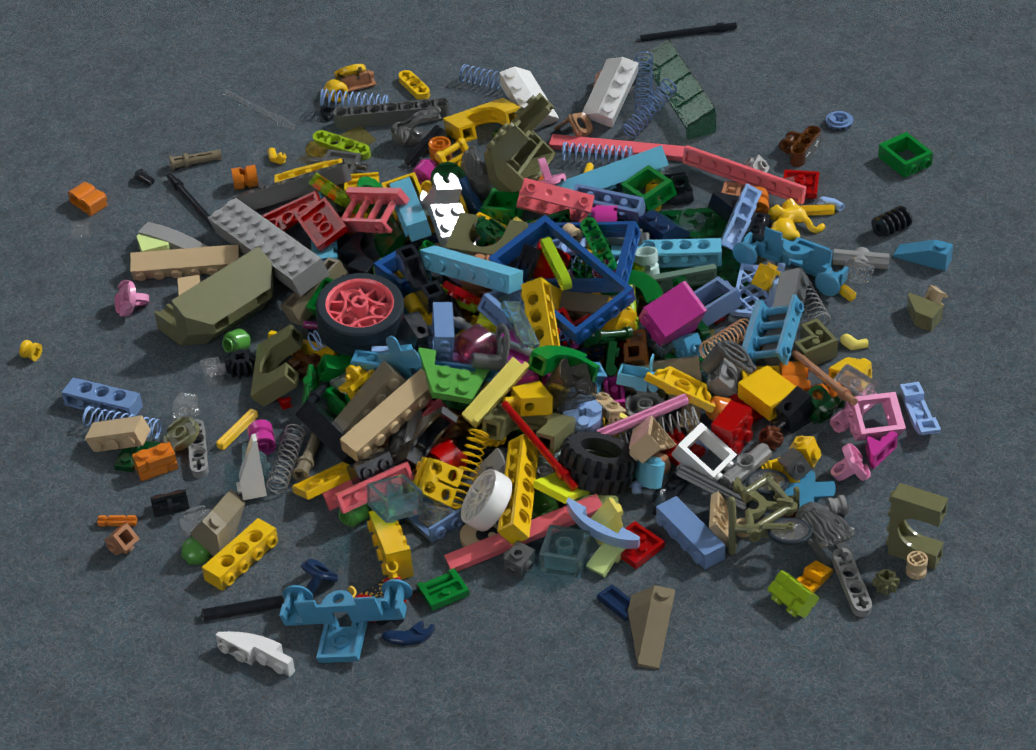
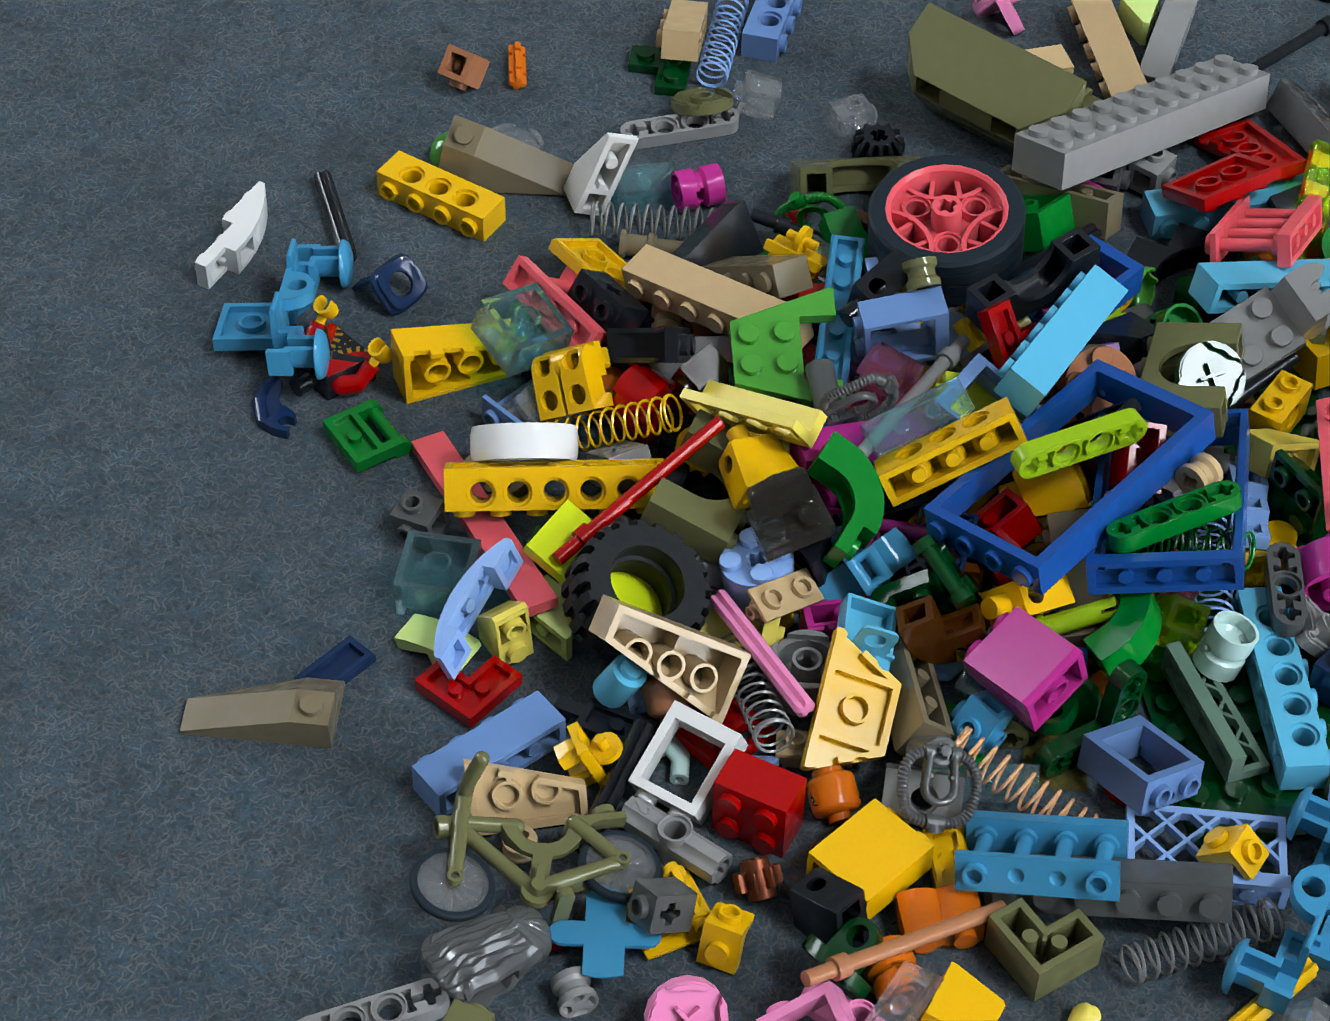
camera: 80 degrees right, 5 degrees up
(155, 461) = (637, 81): orange brick -> none
(169, 503) = (551, 110): black hips -> none
(227, 438) = (729, 165): yellow axle -> none
(236, 340) = (928, 135): bright green head -> none
(401, 357) = (826, 274): dark azure piece -> none
(425, 306) = (921, 273): none -> olive wheel
(697, 491) = (585, 757): none -> yellow hips
(793, 594) = (329, 915): lime brick -> none
(815, 575) = (377, 952): light orange slope -> none

